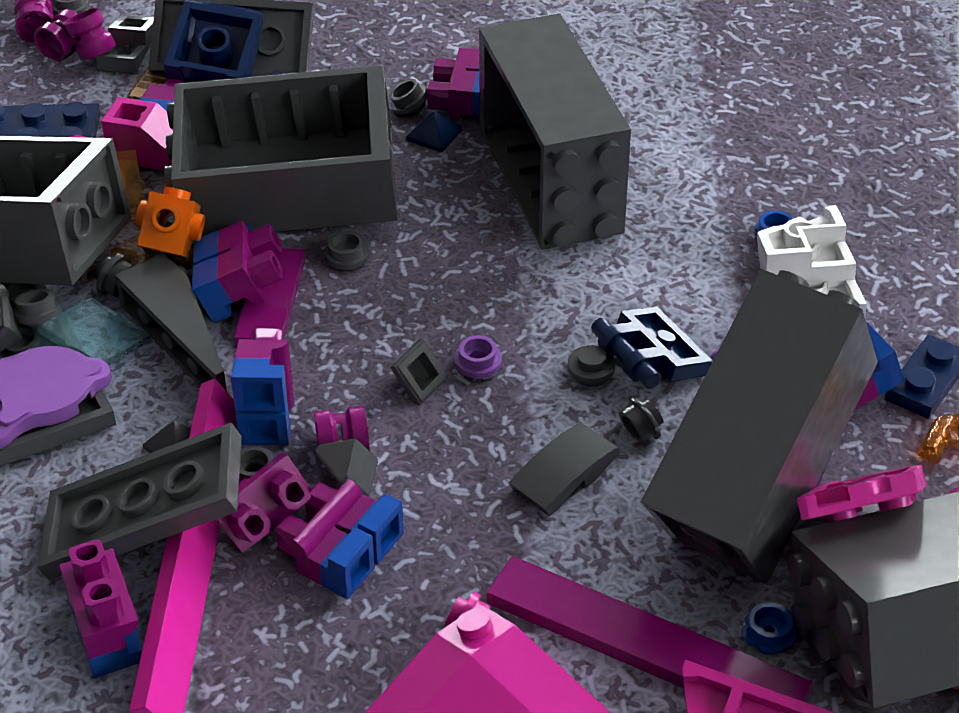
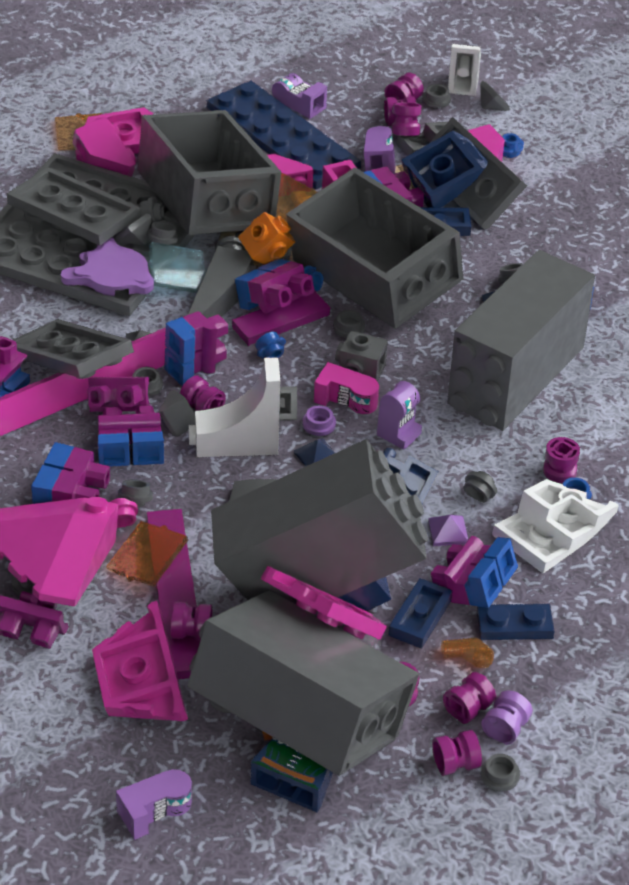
camera: 50 degrees right, 0 degrees up
(104, 81) = (379, 149): none -> medium lavender leg
(314, 330) = (270, 345): none -> blue plate
(357, 640) = (68, 475): none -> magenta hips
(424, 264) = (363, 354): none -> dark grey brick
(443, 584) = (136, 491): none -> dark grey plate
(446, 406) = (245, 425): none -> white arch
(453, 305) = (346, 388): none -> dark pink leg
(525, 390) = (313, 452): none -> dark blue slope
(549, 283) = (397, 415): none -> medium lavender leg
(569, 625) = (147, 553): none -> clear orange piece
(707, 289) = (480, 486): none -> dark grey plate
(725, 210) = (561, 459): none -> magenta wheel
(747, 641) = (188, 619): none -> magenta wheel
(871, 444) = (420, 613): none -> dark blue plate

